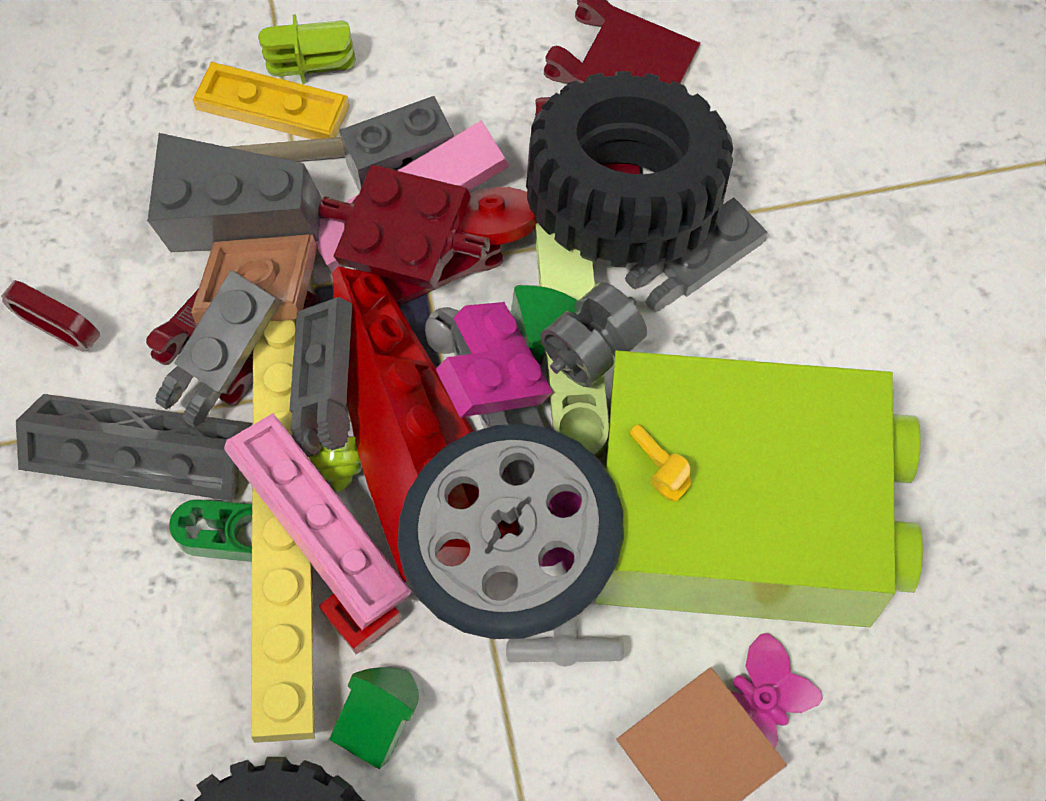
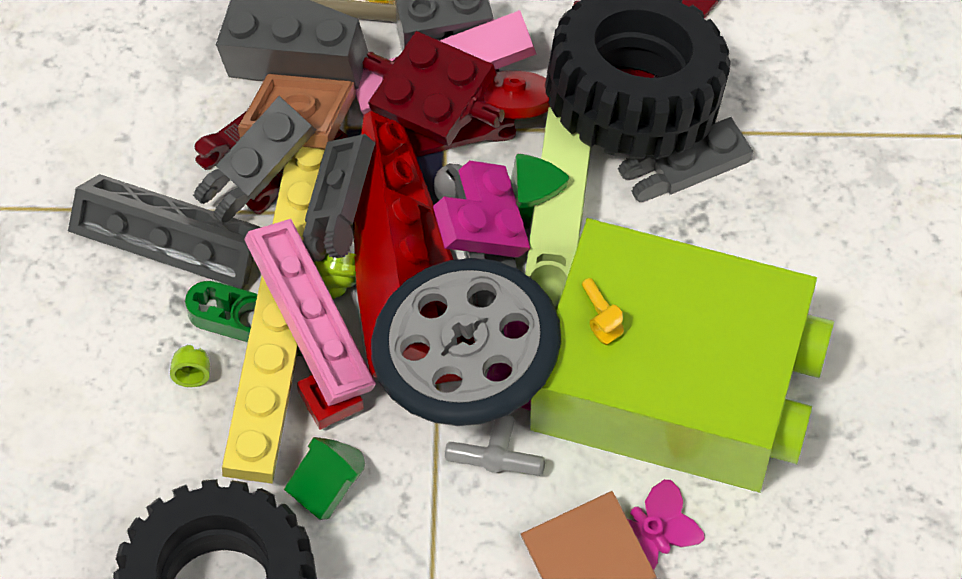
camera: 10 degrees right, 5 degrees down
(50, 316) = (117, 110): dark red tile -> none
(190, 608) = (198, 369): none -> lime hinge
(586, 340) = (564, 207): dark grey wheel -> none

